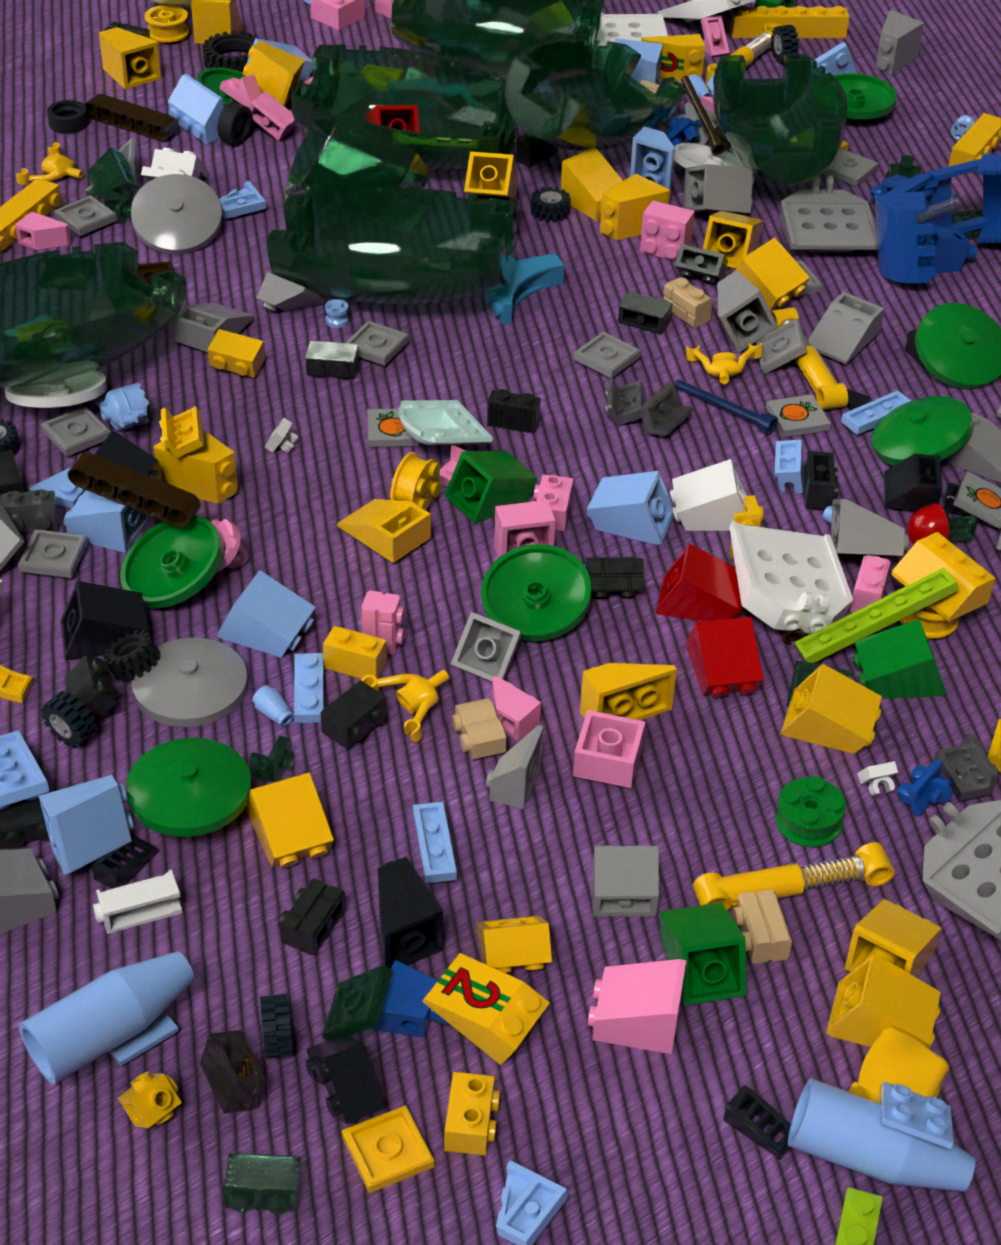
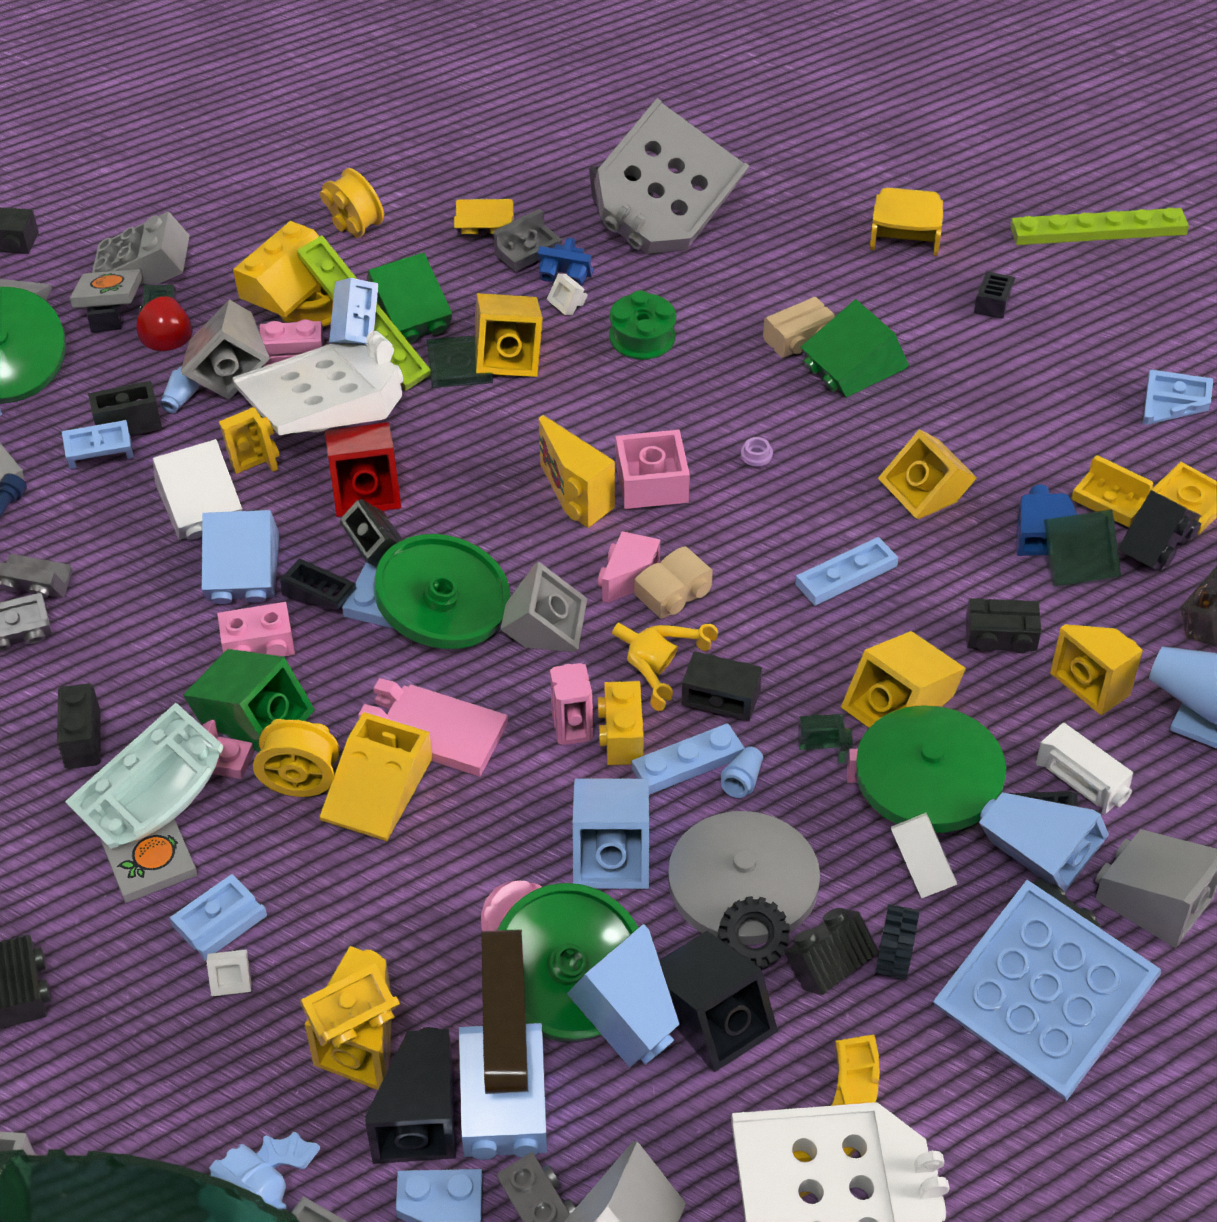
camera: 110 degrees left, 5 degrees up
(53, 553) = (596, 1133): light grey plate -> none
(117, 561) = (629, 999): none -> light blue slope
(125, 758) = (924, 855): none -> white tile
(220, 941) = (1096, 664): none -> yellow slope
(236, 353) = (49, 1102): yellow brick -> none
(276, 1025) = (1150, 591): black wheel -> none
(325, 442) = (218, 916): none -> light blue plate
(407, 915) = (970, 544): black slope -> none
(417, 1073) = (1114, 489): none -> yellow bracket
(421, 568) = (460, 732): none -> bright pink tile
(469, 1114) = (1128, 445): yellow brick -> none
(486, 1006) = (1023, 456): yellow slope -> none
(517, 771) = (722, 521): light grey slope -> none
(523, 525) = (345, 626): bright pink brick -> none
(594, 529) = (303, 571): none -> black slope
(608, 835) = (756, 452): none -> lavender plate
(625, 881) = (816, 416): light grey slope -> none
(638, 1005) = (944, 368): bright pink slope -> none
(725, 657) = (462, 423): red slope -> none
(865, 597) = (353, 311): none -> light blue hinge
(868, 864) = (777, 360): yellow piece -> none
(879, 998) = (843, 244): yellow slope -> none
(895, 936) = (771, 244): yellow slope -> none
(897, 1141) = (980, 211): light blue piece -> none
(913, 482) = (98, 340): black slope -> none

